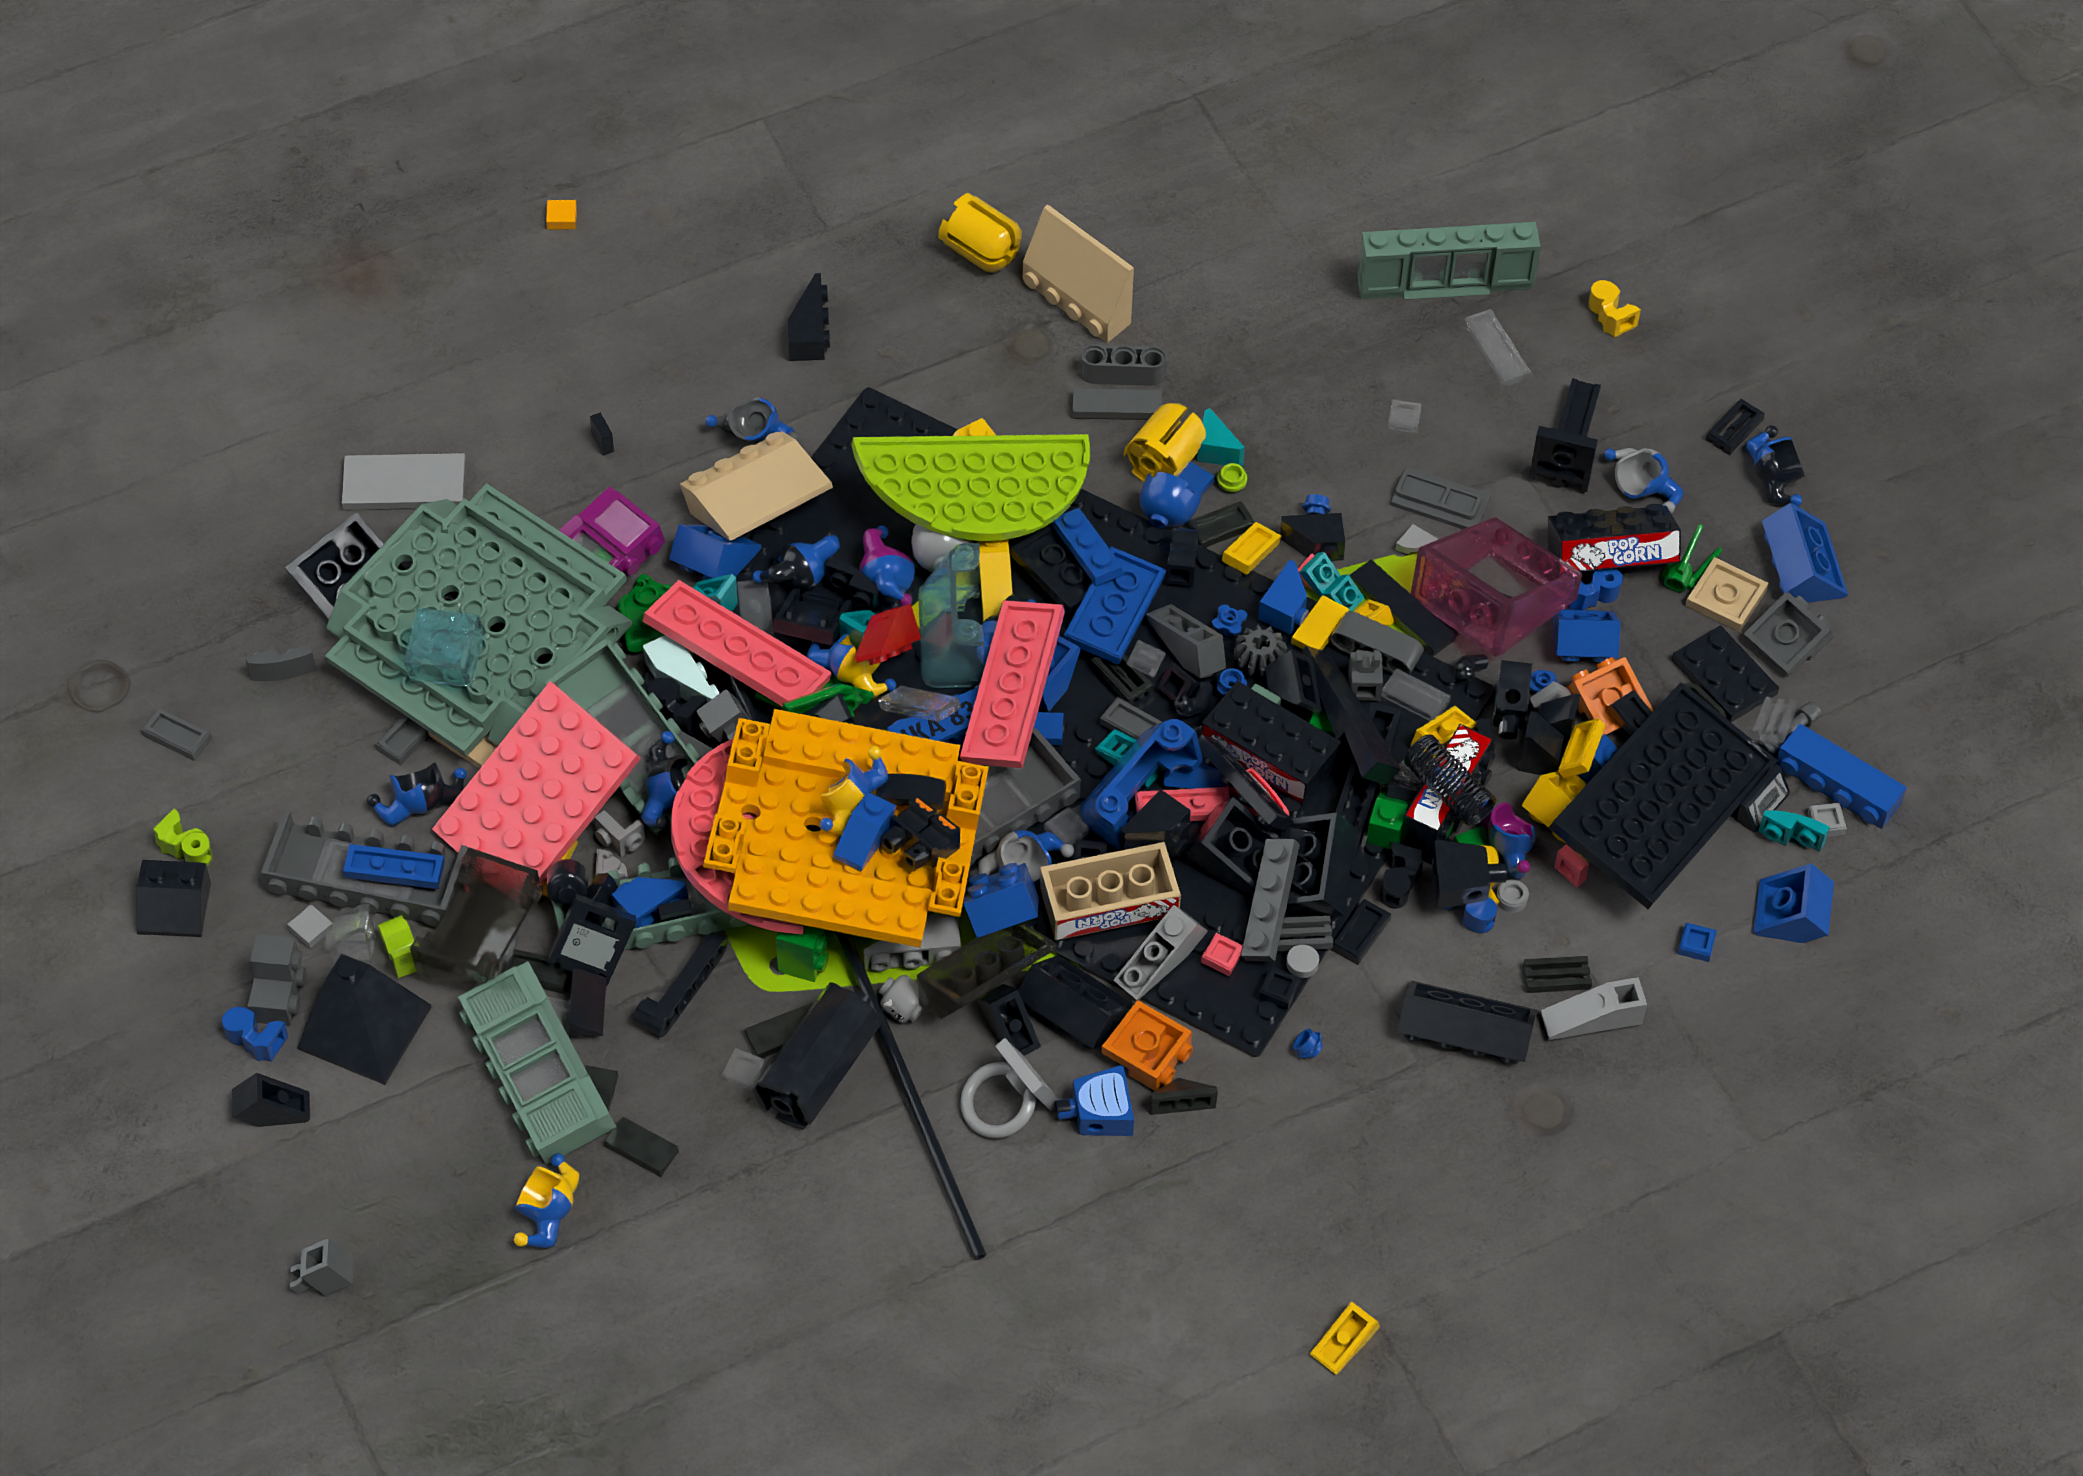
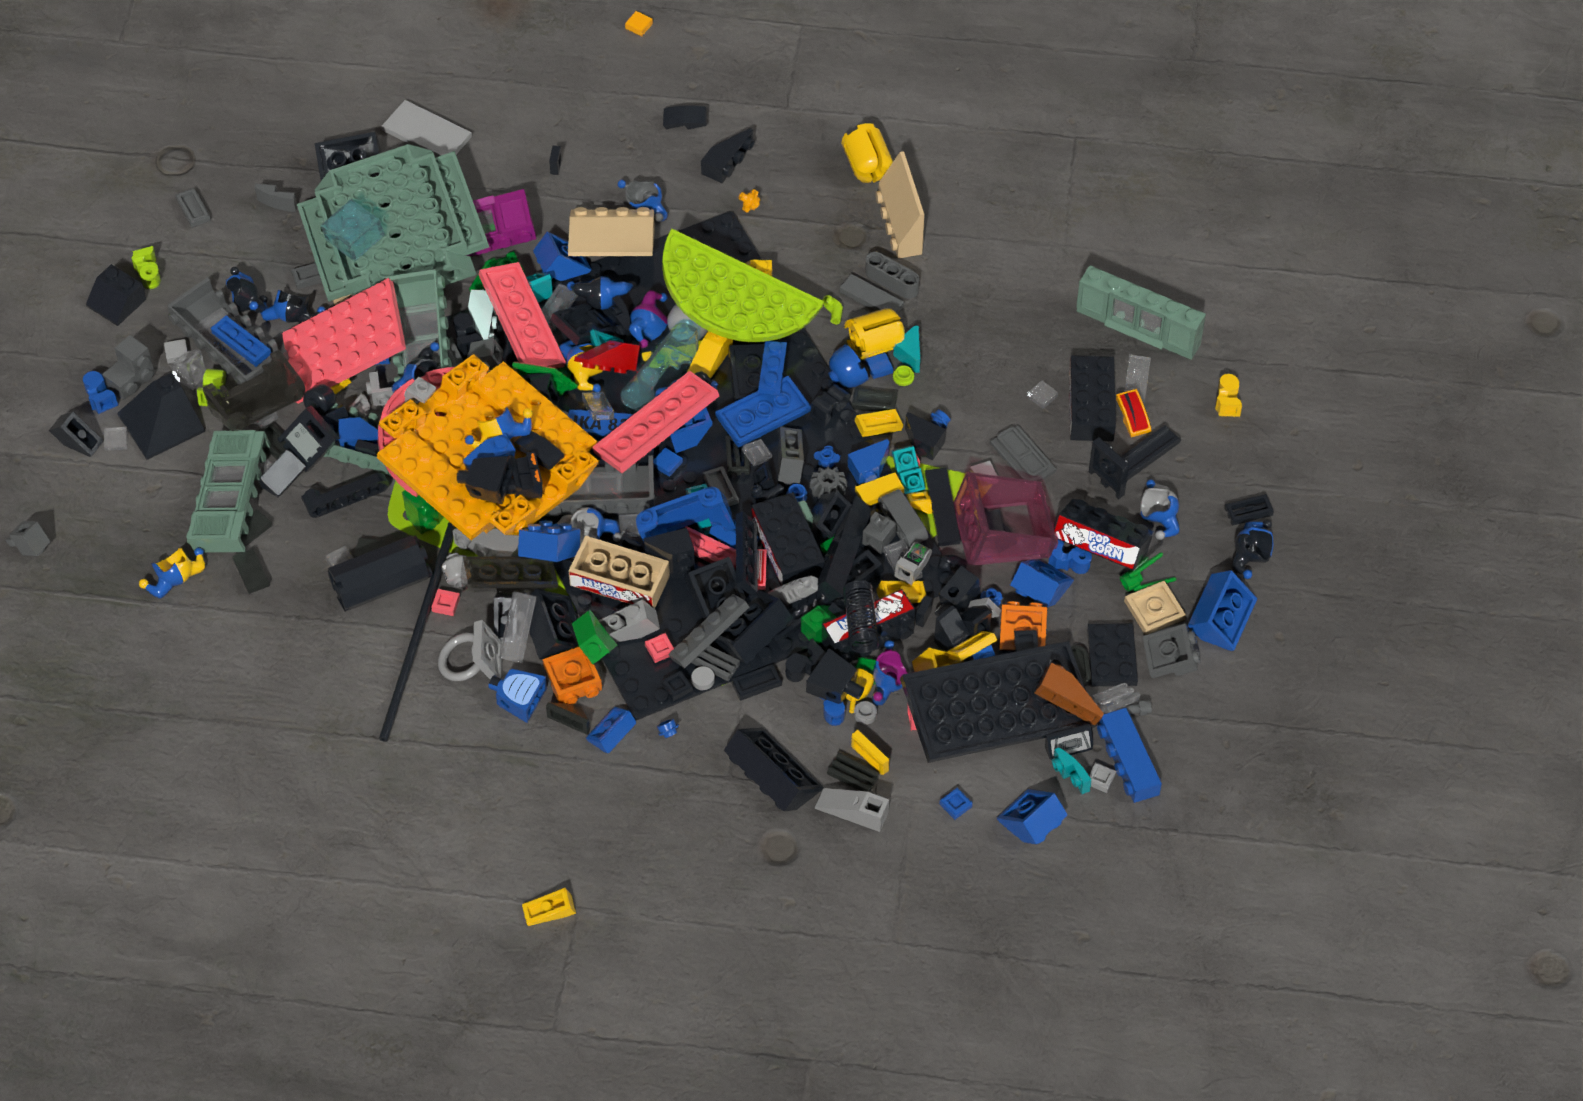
camera: 35 degrees right, 0 degrees up
(324, 1079) = (115, 438): none -> clear tile
(345, 803) = (244, 292): none -> black piece
(712, 796) = (419, 391): none -> light grey bracket
(716, 299) = (686, 116): none -> black slope
(881, 362) = (750, 200): none -> light orange plant
(893, 859) = (487, 478): none -> black torso
(916, 1047) = (445, 602): none -> coral tile
(1040, 1025) = (517, 627): none -> clear tile
(1096, 449) = (834, 308): none -> lime arm
(1144, 985) = (592, 637): none -> green slope
(1240, 1084) = (611, 729): none -> blue slope
(1339, 792) = (796, 590): none -> light grey hinge
(1436, 687) = (912, 562): none -> light grey leg
(1468, 390) = (1092, 398): none -> black brick
(1530, 386) = (1134, 413): none -> slope
(1560, 938) = (870, 752): none -> yellow tile
(1731, 742) = (1066, 692): none -> dark orange slope

